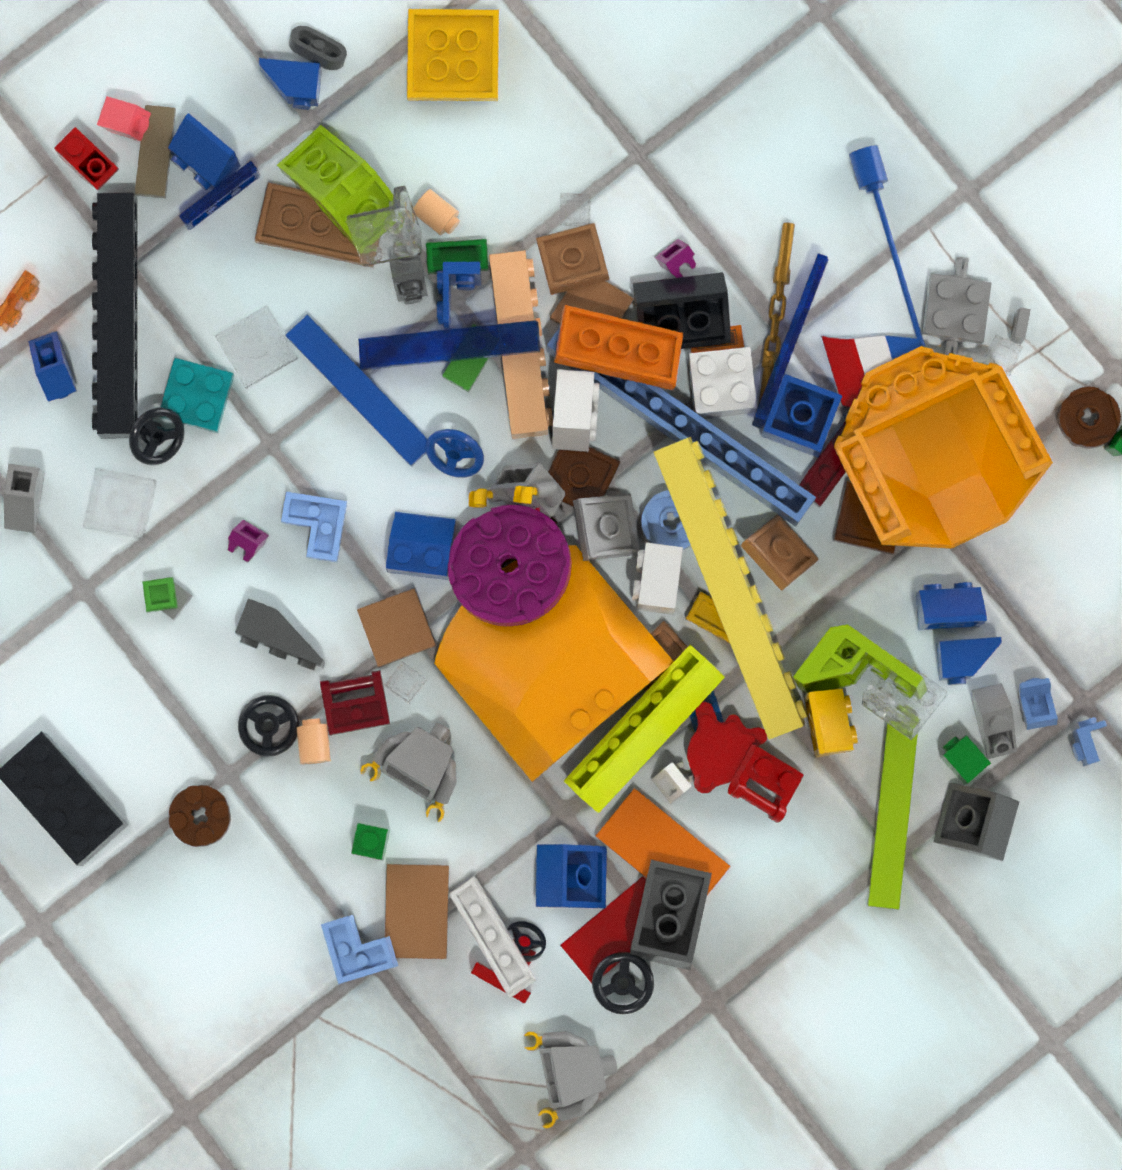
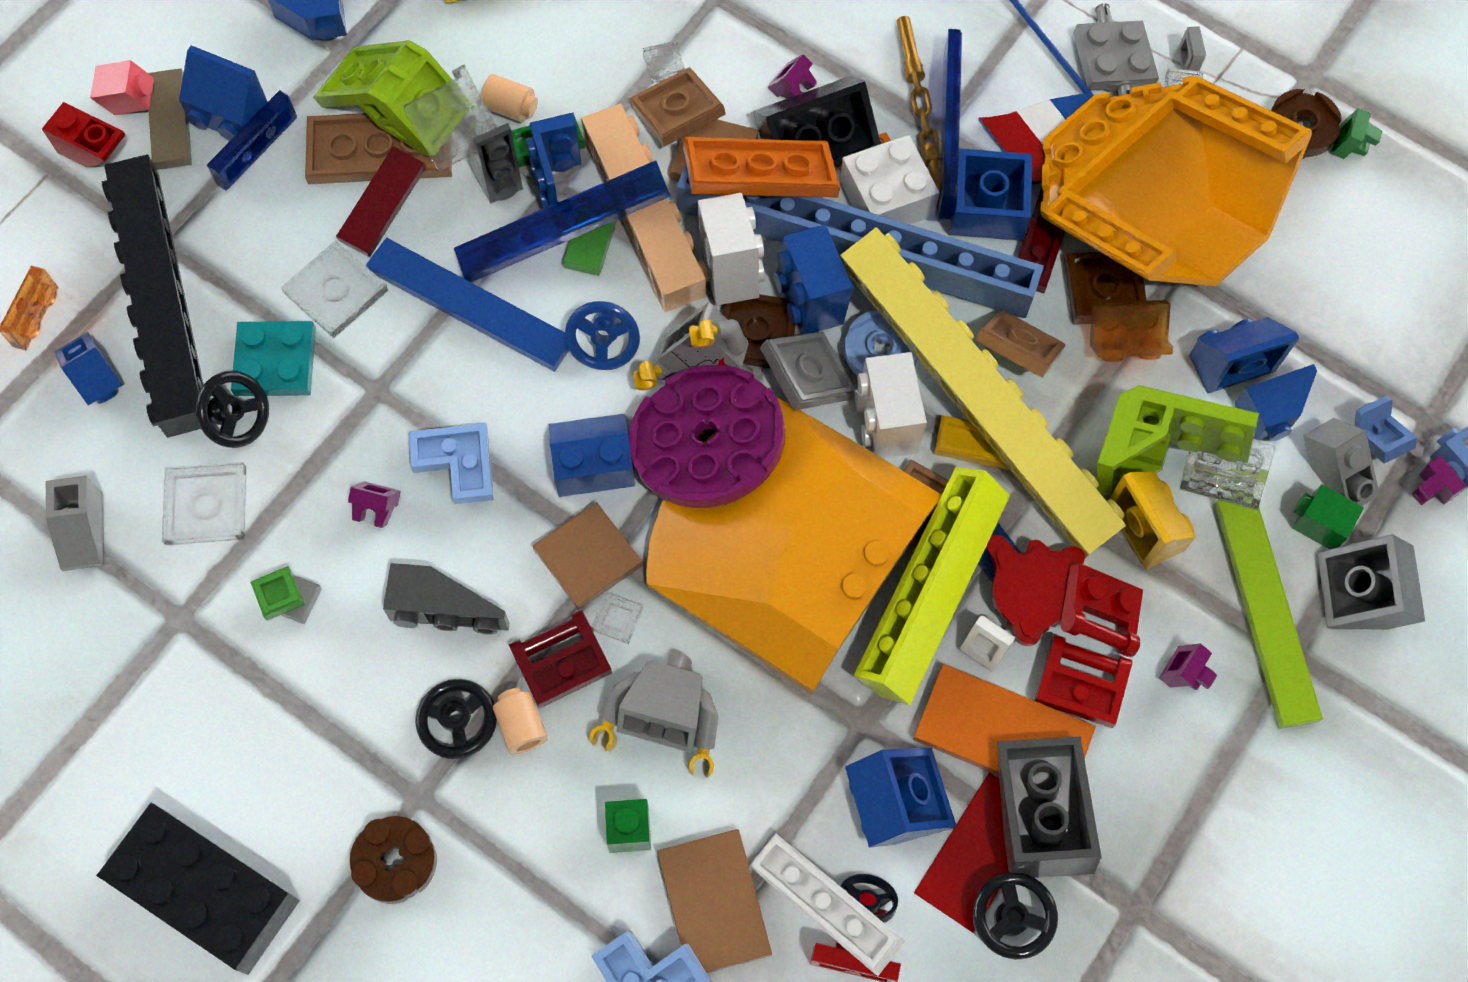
camera: 20 degrees left, 15 degrees down
(310, 281) = (381, 201): none -> dark red tile
(632, 455) = (813, 280): none -> blue brick
(729, 839) = (1080, 692): none -> red plate
(813, 844) = (1189, 668): none -> magenta tile
(872, 565) = (1130, 329): none -> clear orange bracket
(1063, 756) = (1438, 481): none -> magenta tile

